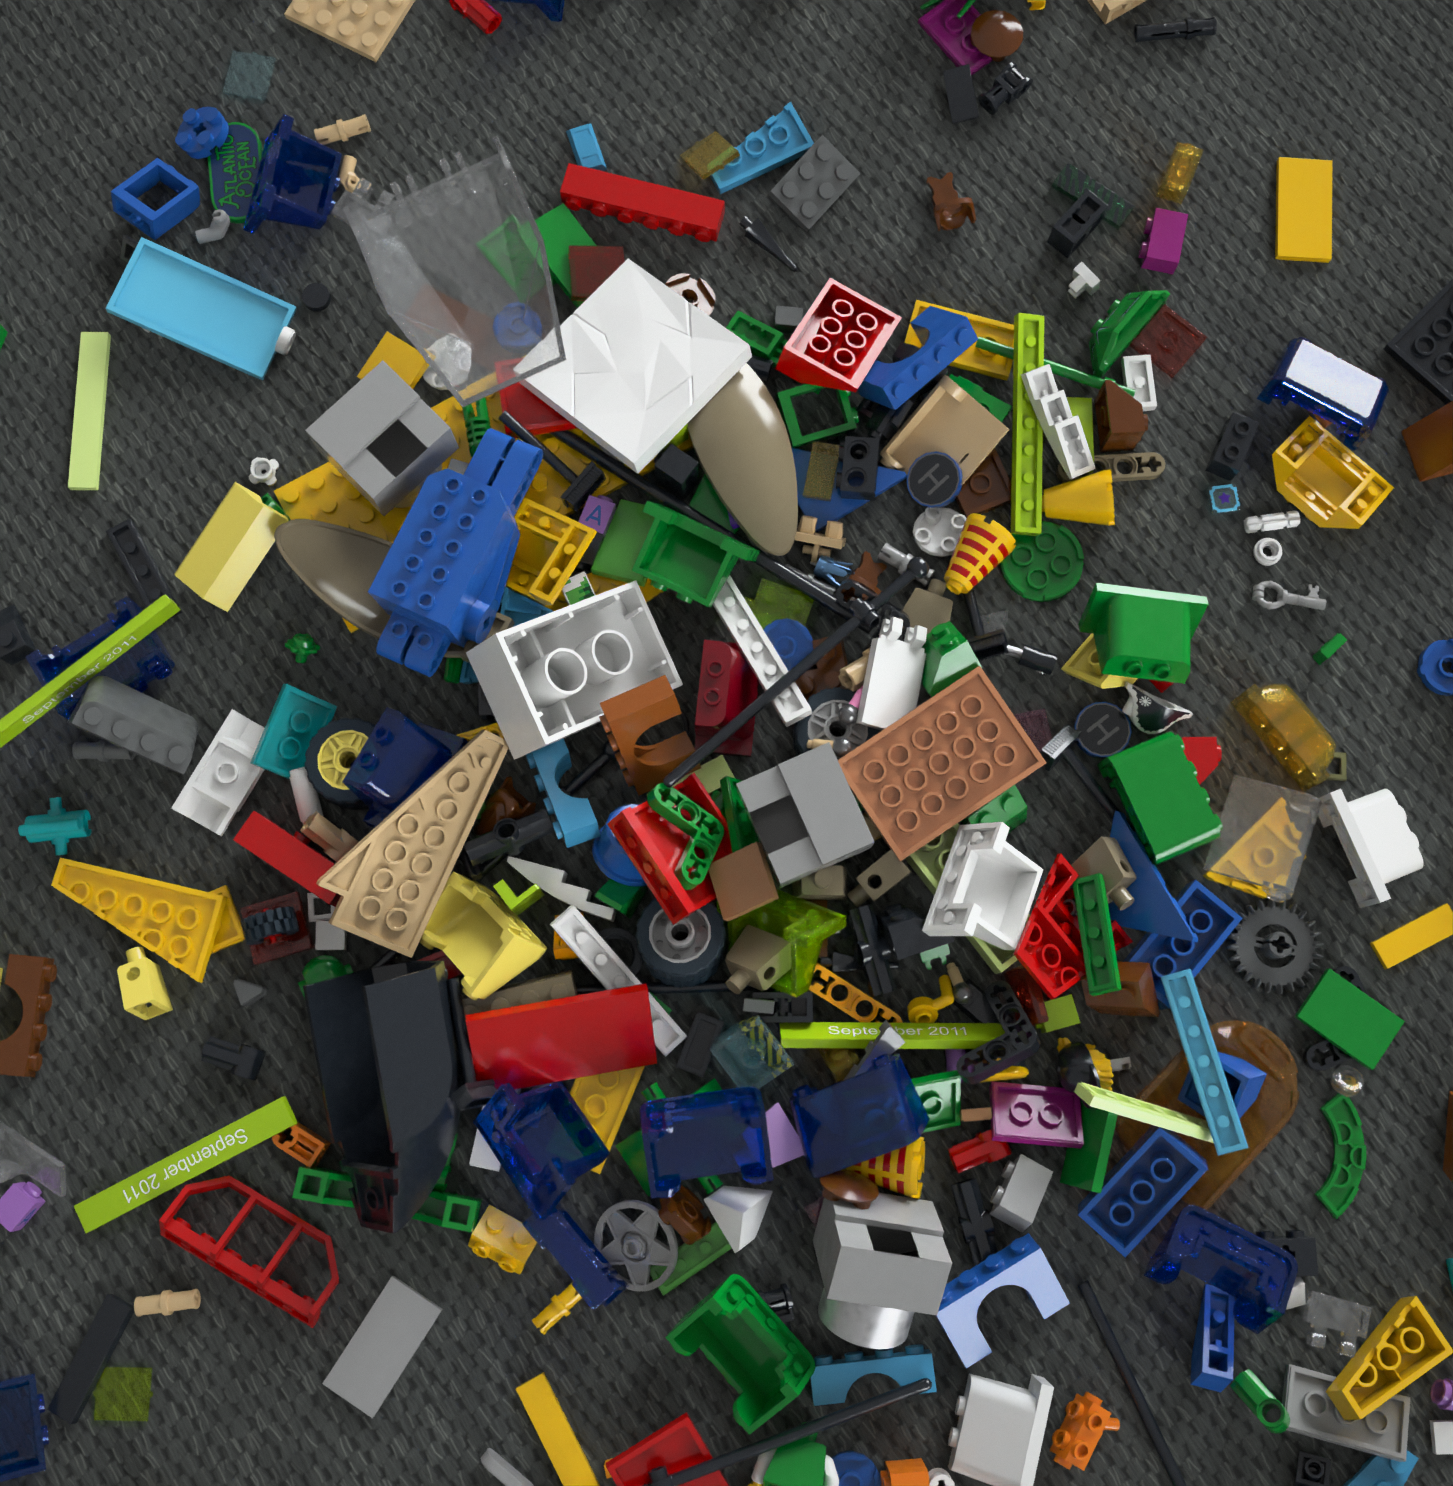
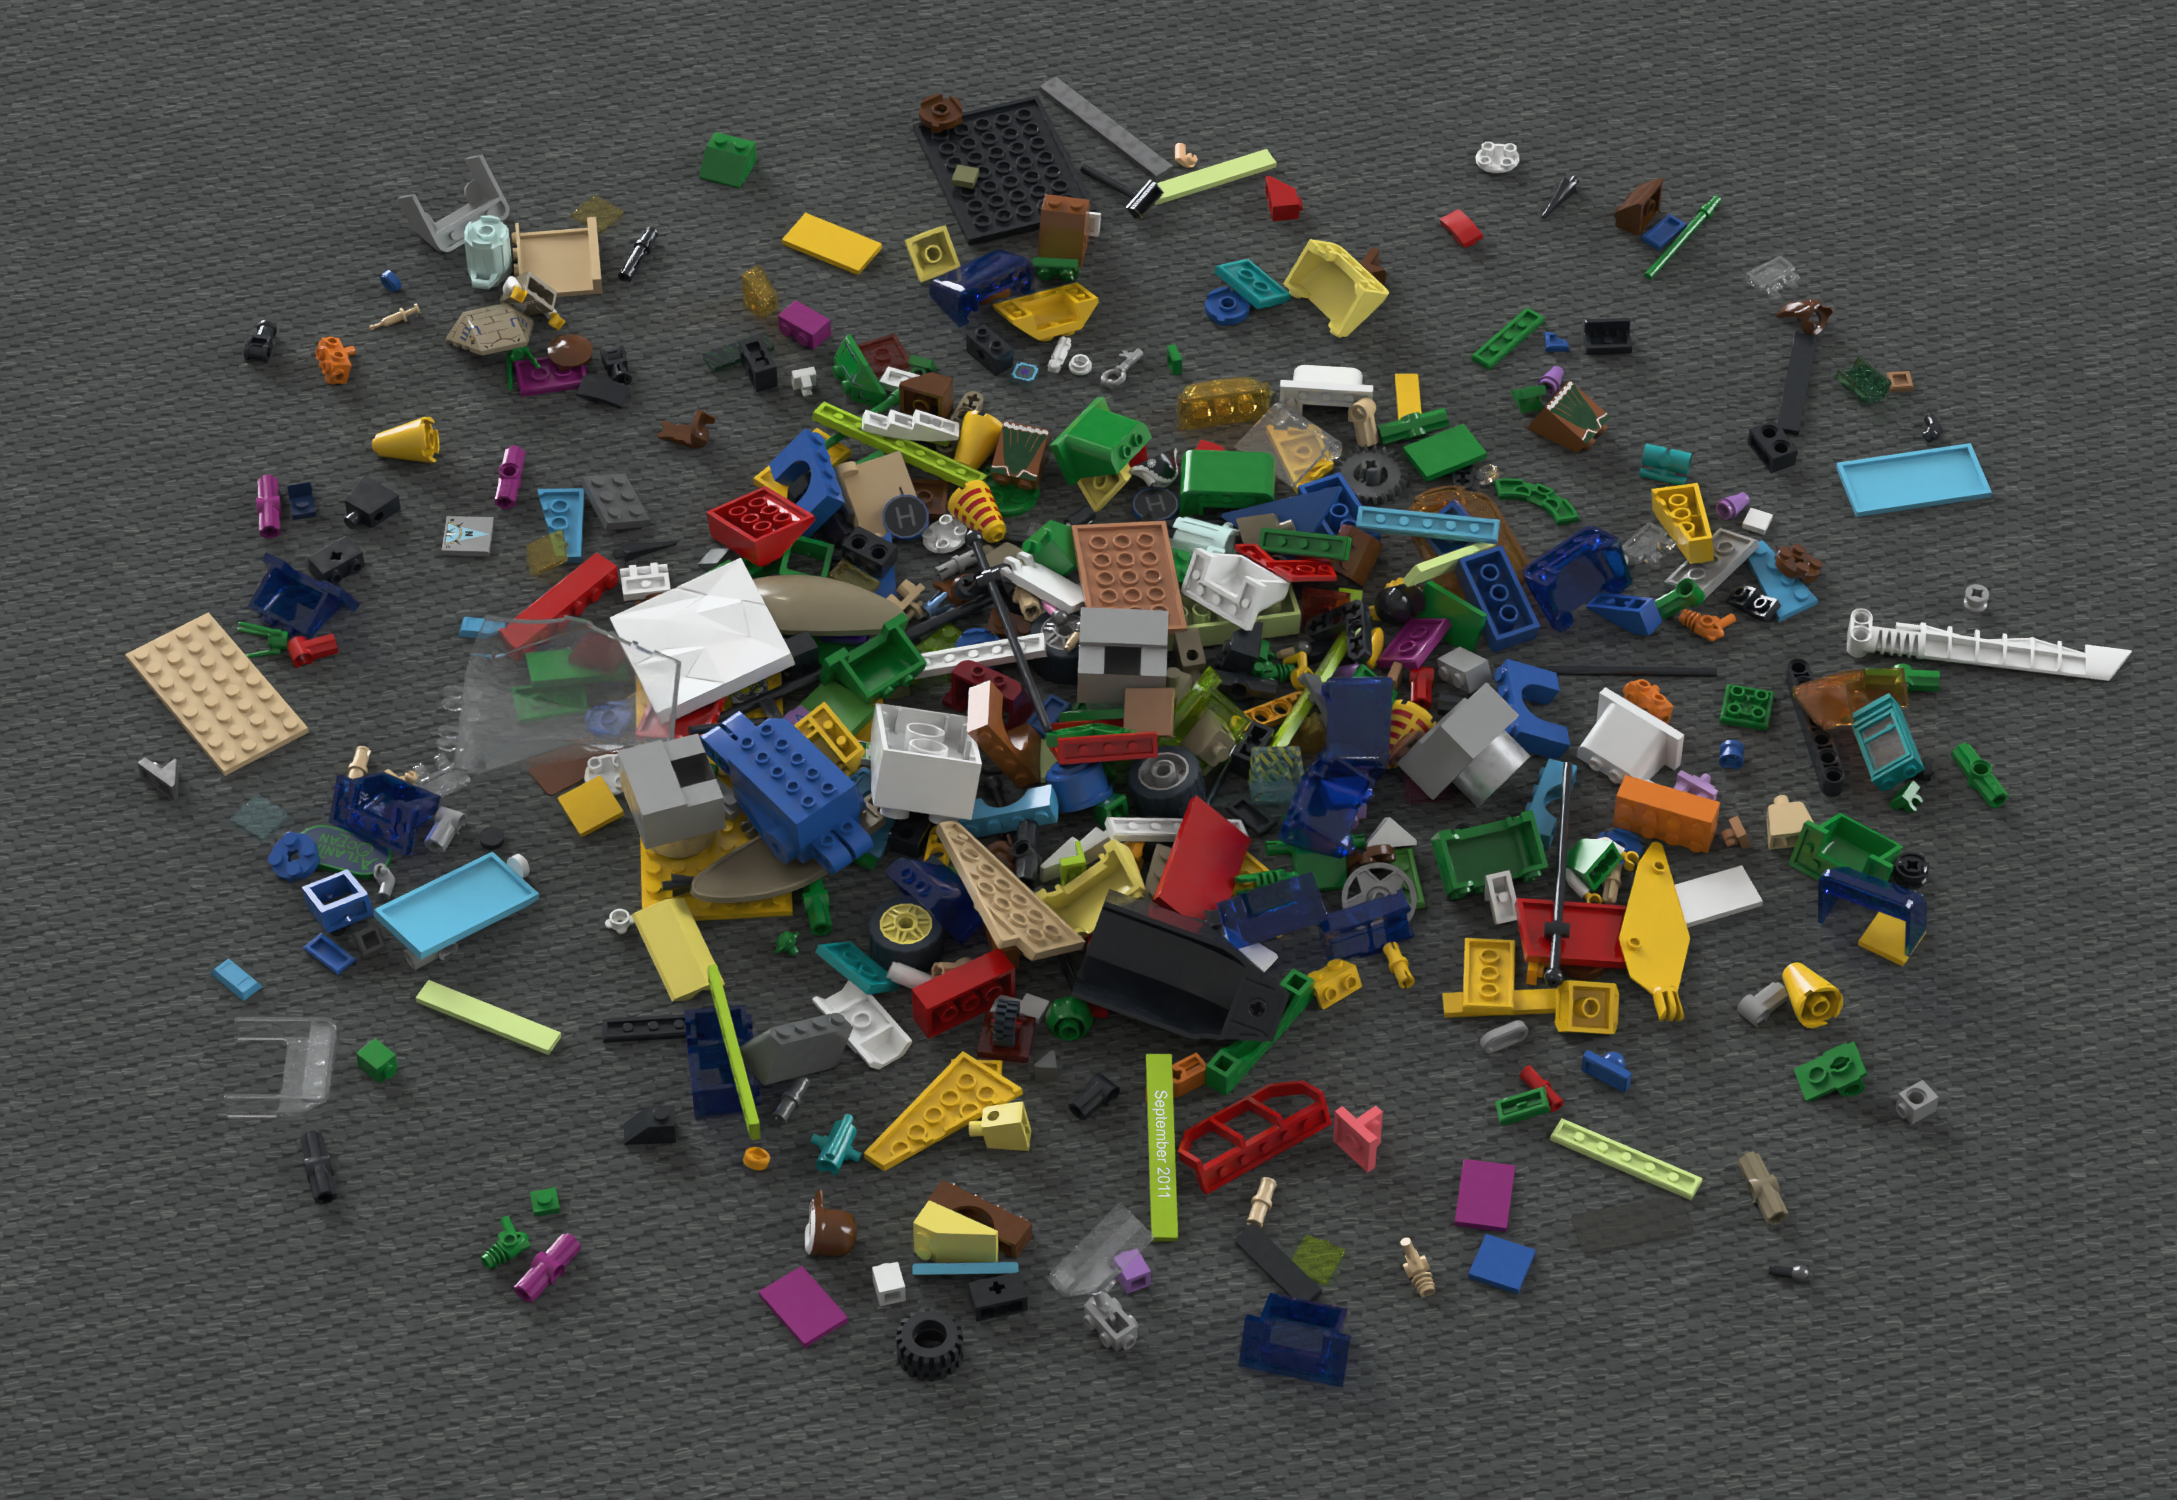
camera: 65 degrees left, 30 degrees down
(15, 754) = (756, 1158): none -> light orange tile
(40, 161) = (236, 979): none -> dark azure tile
(102, 228) = (329, 954): none -> blue tile
(283, 1380) = (1359, 1136): none -> coral bracket
(308, 248) = (446, 825): none -> light grey piece
(320, 506) = (678, 885): none -> black piece
(356, 657) = (817, 907): none -> green piece
(382, 1346) = (1369, 1081): light grey tile -> none
(587, 1418) = (1489, 976): none -> yellow tile
(598, 1110) = (1262, 879): none -> green hinge
(700, 71) = (467, 536): none -> light grey tile
(700, 1387) = (1502, 897): none -> white slope
(716, 272) = (644, 580): none -> white plate
(732, 762) = (1053, 706): none -> blue tile
(758, 1005) = (1244, 746): dark grey tile -> none
(808, 64) = (510, 477): none -> magenta piece
(911, 970) = (1273, 672): none -> green piece
(1056, 814) = (1200, 534): none -> light aqua container
(1082, 556) = (1021, 455): none -> slope
(1172, 388) = (922, 365): none -> green tile
(1242, 1449) = (1706, 626): none -> orange piece
(1343, 316) = (932, 253): none -> light yellow slope
(1343, 905) = (1364, 423): none -> tan piece
(1361, 46) = (728, 160): none -> green slope
(1372, 964) = (1413, 426): none -> green piece
(1386, 449) = (1055, 267): none -> green tile

